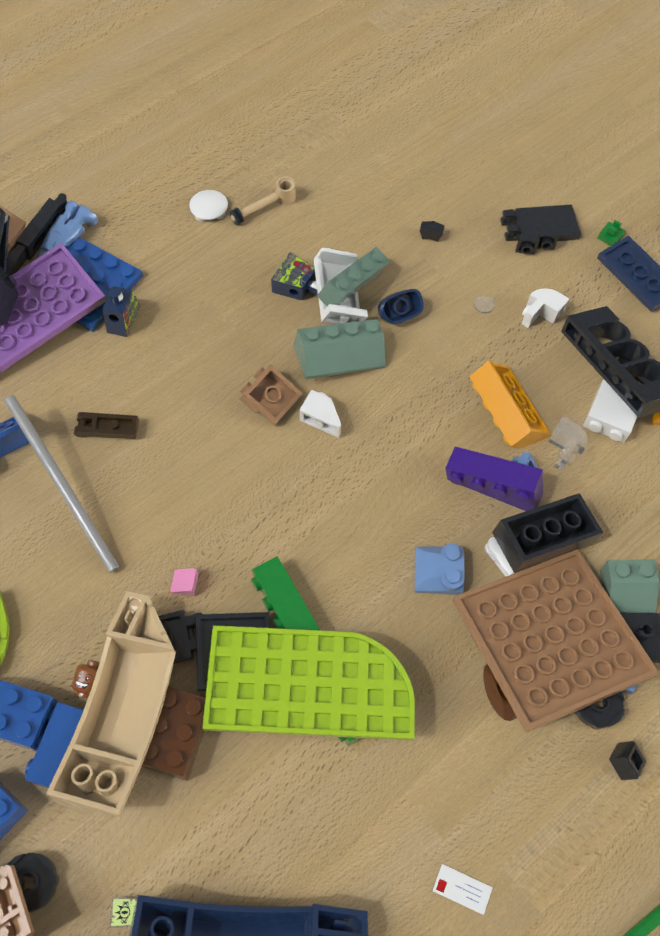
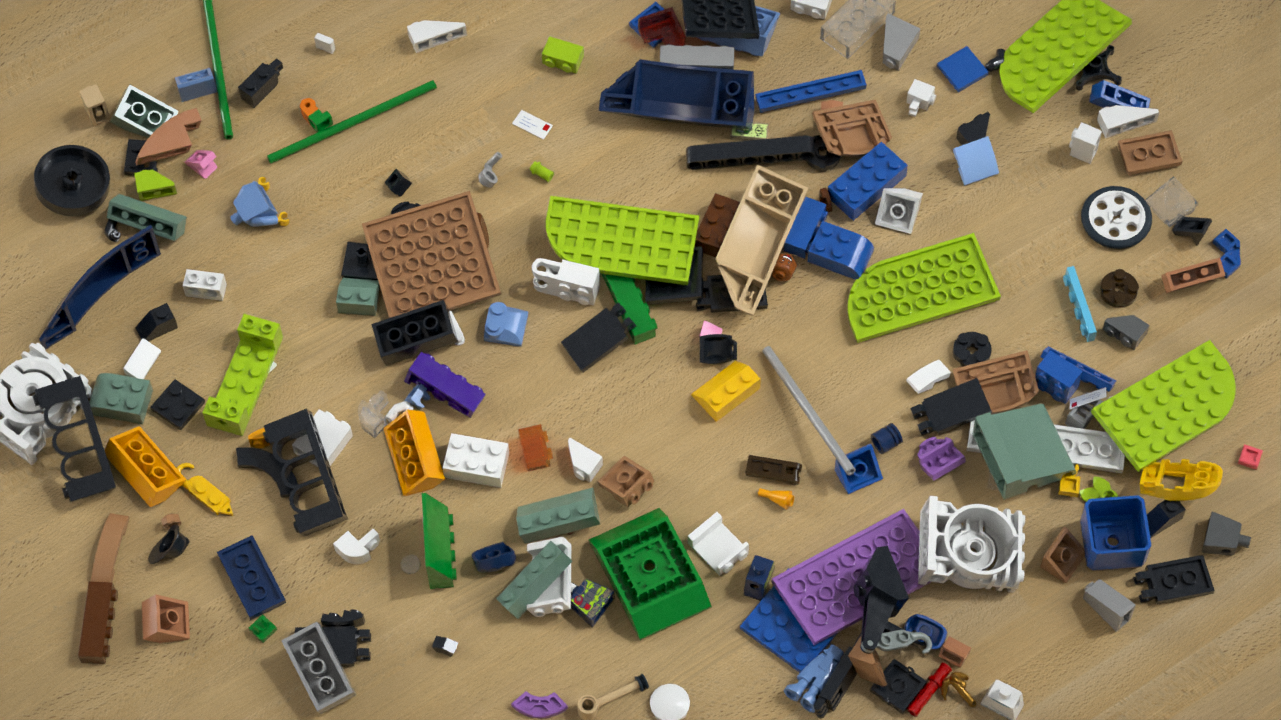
camera: 170 degrees left, 0 degrees up
(28, 797) = (825, 198): none -> reddish brown tile
(95, 395) = (782, 498): none -> light orange cone
(133, 862) = (749, 152): none -> black beam
(161, 511) = (727, 389): none -> yellow slope
(165, 343) = (717, 545): none -> white panel
(173, 558) = (717, 348): none -> black piece
(242, 330) = (657, 596): none -> green slope
(322, 555) = (598, 337): none -> black tile
(337, 194) = (539, 706): none -> medium lavender tile
(375, 620) = (567, 280): none -> white brick
(377, 422) = (534, 447): none -> clear orange brick
(434, 801) = (541, 171): none -> lime pin
(440, 400) = (476, 460): none -> white brick
(463, 303) = (438, 543): none -> green slope
(507, 787) = (487, 176): none -> light grey plate
(542, 454) = (398, 408): none -> white arm
(548, 189) = (318, 668): none -> light grey brick

